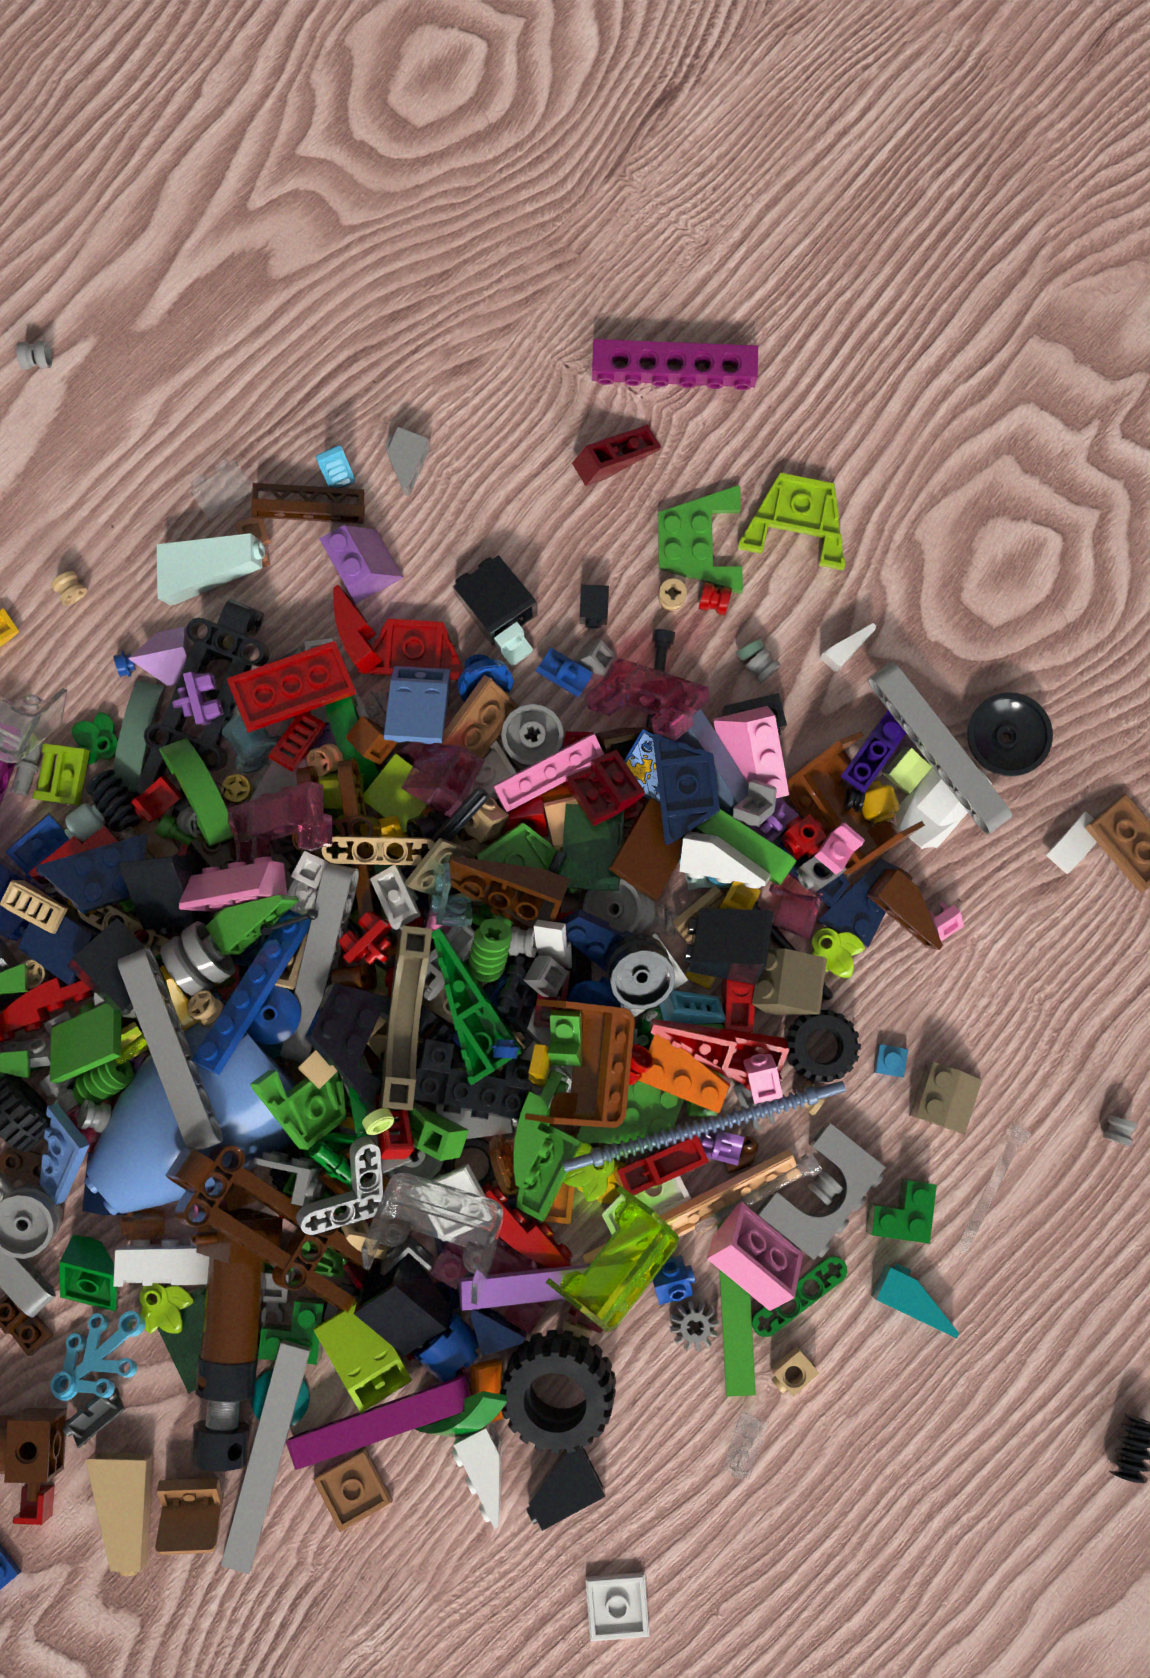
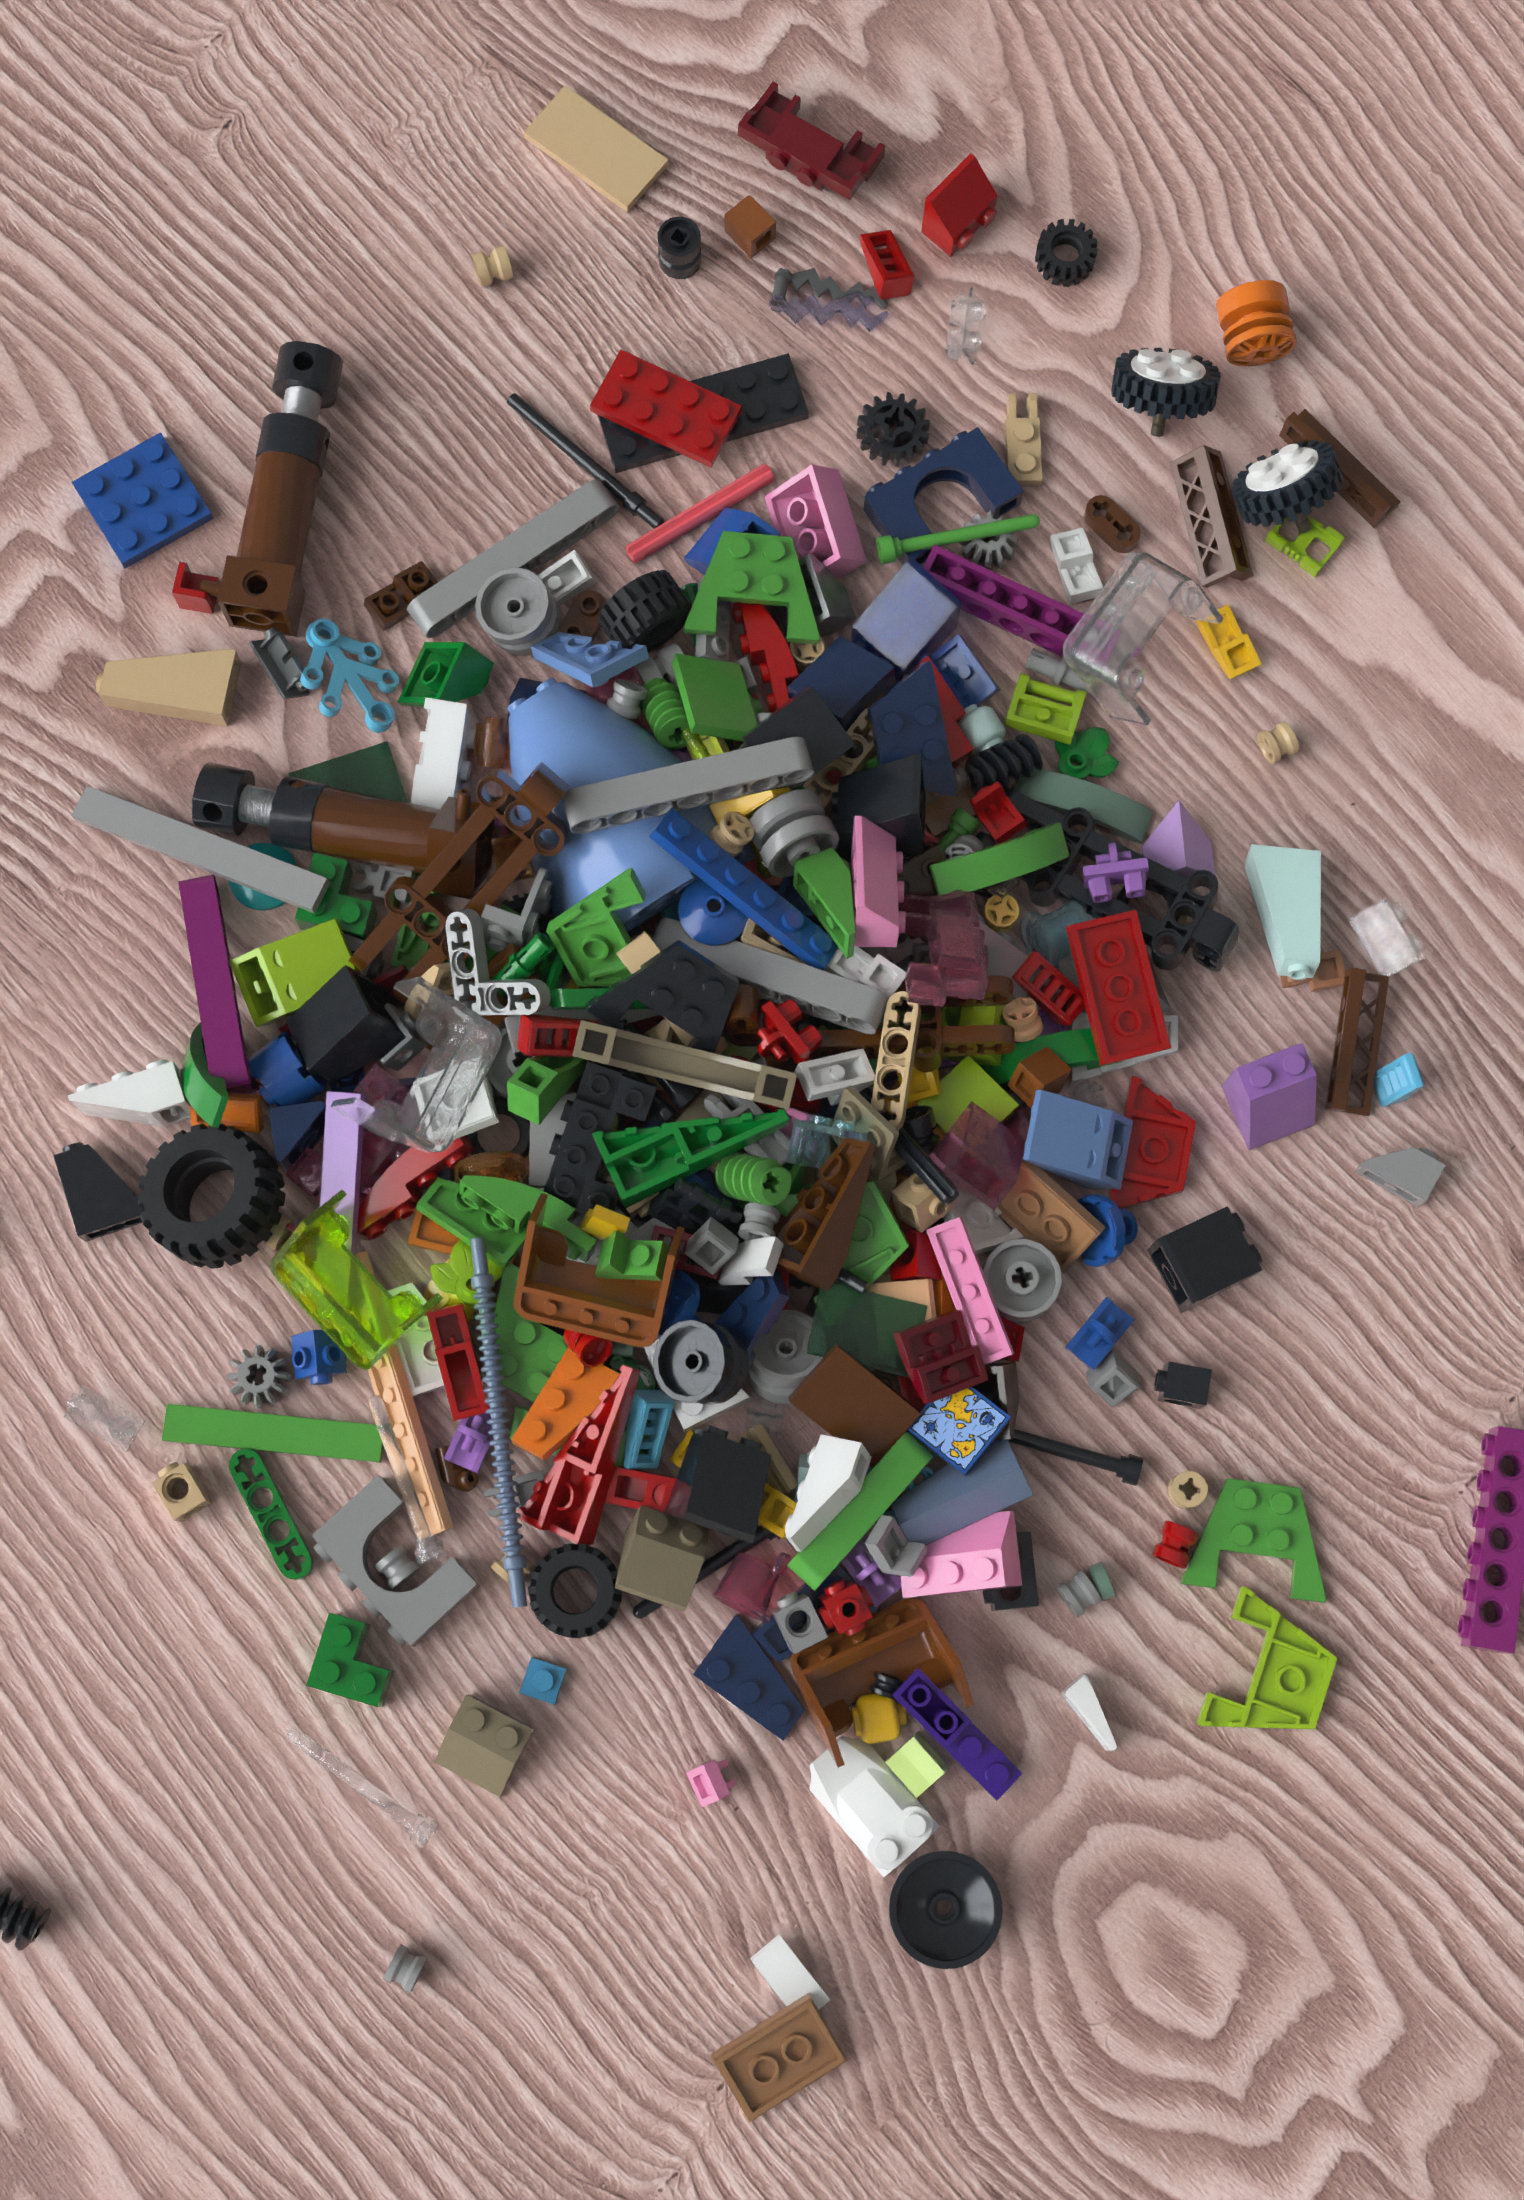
camera: 95 degrees right, 5 degrees down
(17, 897) = (898, 639): tan slope -> none
(123, 664) = (1170, 796): blue plate -> none
(166, 1311) = (388, 757): lime plate -> none
(189, 1515) = (150, 756): medium nougat bracket -> none
(266, 929) = (817, 916): black hinge -> none
(352, 1489) = (143, 945): medium nougat tile -> none
(354, 631) = (1181, 1077): red slope -> none
(378, 1121) = (565, 1015): yellowish green tile -> none
(505, 1049) = (629, 1179): blue plate -> none
(513, 644) = (1143, 1274): light aqua bracket -> none
(614, 454) = (1384, 1443): dark red slope -> none
(651, 691) = (1059, 1436): clear pink bracket -> none
(685, 786) = (928, 1457): dark blue wing -> none
(756, 1257) = (327, 1463): bright pink slope -> none
(763, 1078) = (546, 1502): bright pink bracket -> none
(839, 847) = (823, 1646): bright pink bracket -> none
(840, 951) = (687, 1633): lime plate -> none
(904, 903) = (740, 1728): reddish brown slope -> none
(908, 1296) = (246, 1650): teal slope -> none
(940, 748) = (937, 1806): light grey beam -> none

